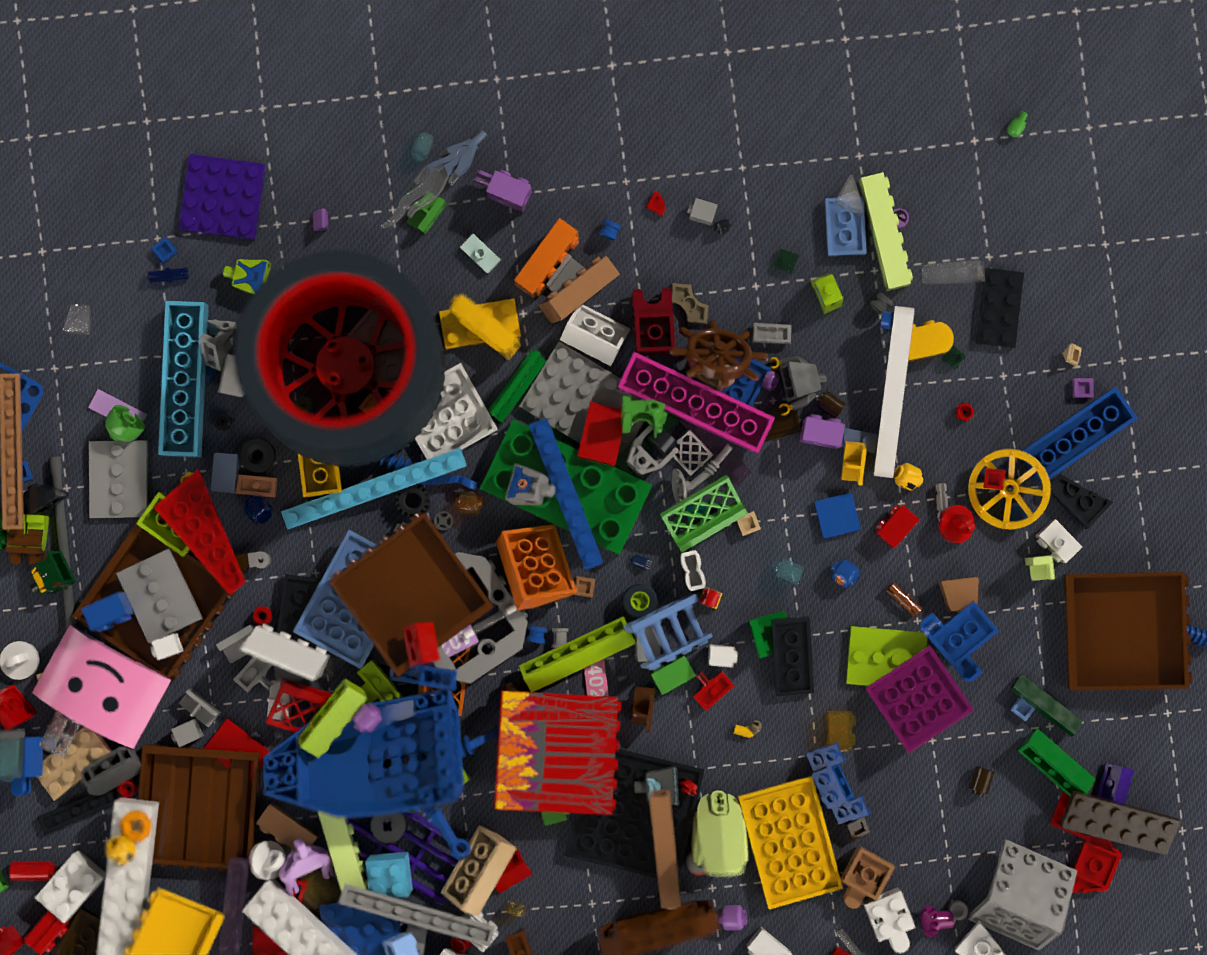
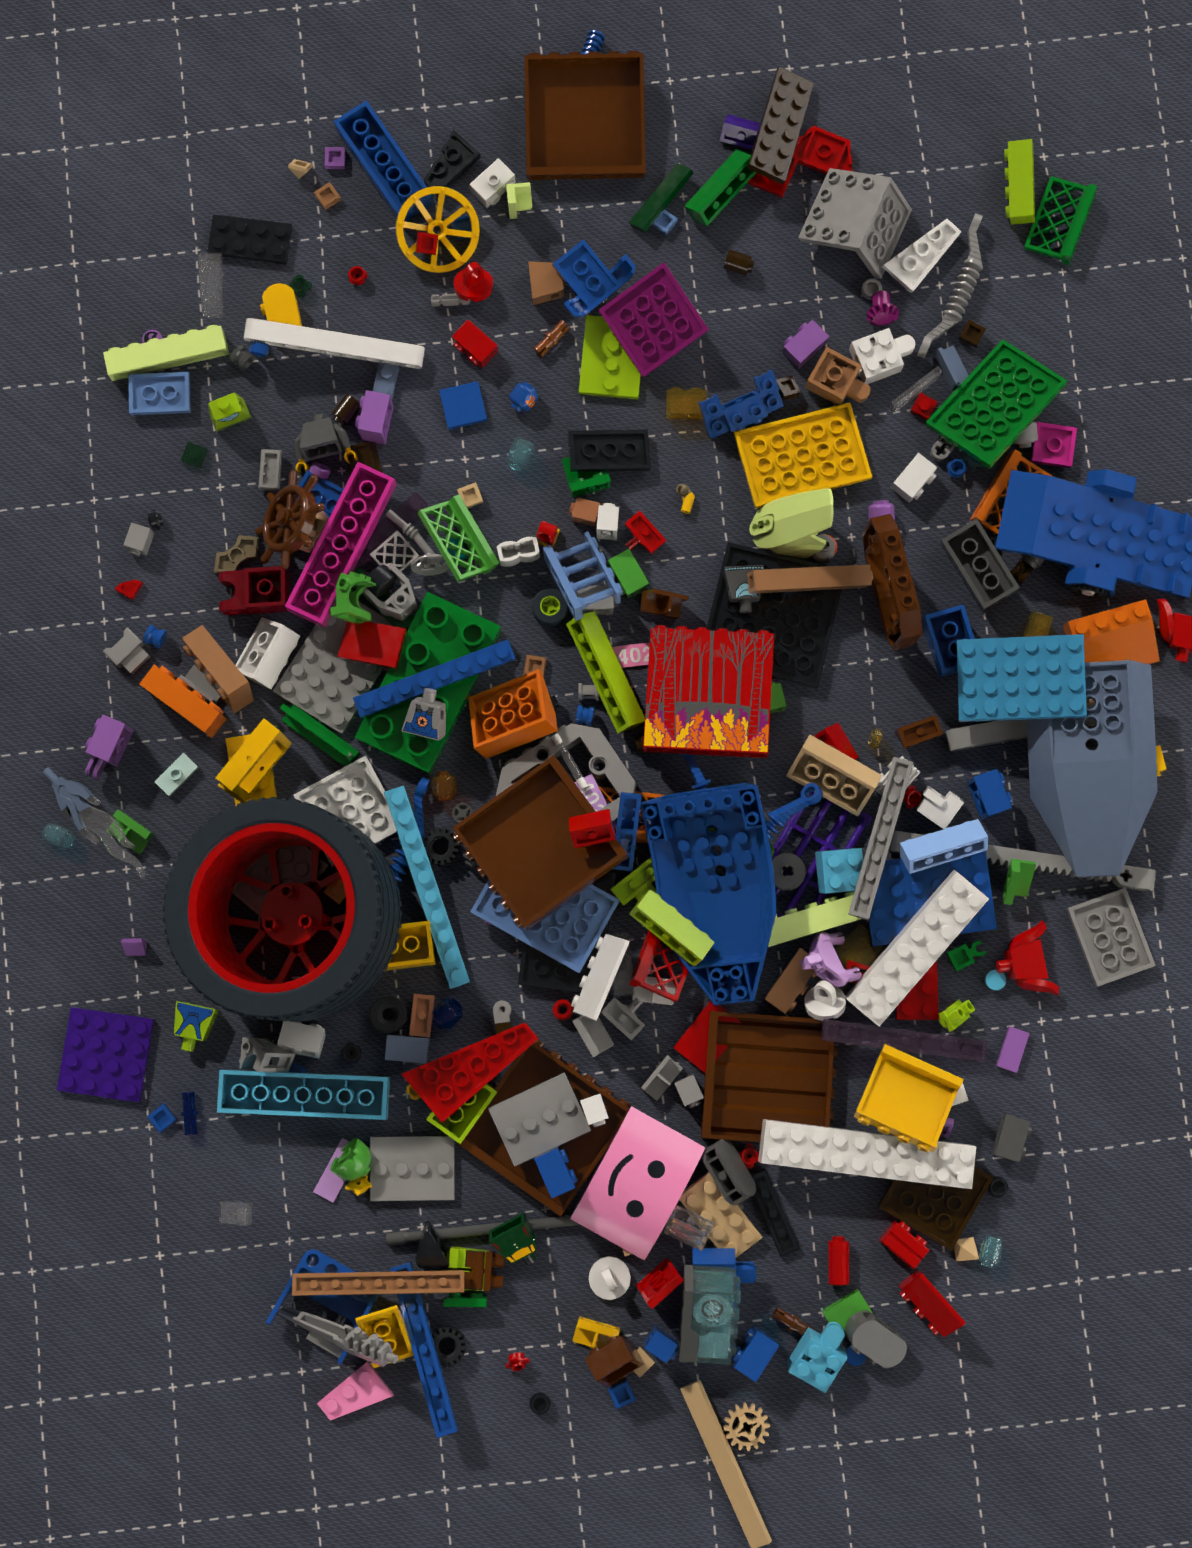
camera: 85 degrees left, 5 degrees down
(71, 886) = (855, 1217): white brick -> none
(98, 430) = (361, 1188): none -> yellow plate
(120, 850) = (813, 1152): yellow head -> none
(126, 826) = (797, 1135): light orange gear -> none
(367, 718) = (671, 889): medium lavender head -> none
(594, 205) = (128, 652): none -> light grey piece
(640, 562) = (509, 608): dark blue piece -> none
(688, 787) = (746, 556): red plate -> none
(733, 633) = (584, 511): none -> nougat brick
(849, 197) = (128, 386): clear slope -> none
(854, 462) = (407, 385): yellow panel -> none
(900, 845) = (805, 343): none -> medium lavender brick
(908, 476) = (423, 332): yellow head -> none
(1017, 125) = (59, 219): bright green cylinder -> none
(1044, 381) = (327, 196): none -> medium nougat tile

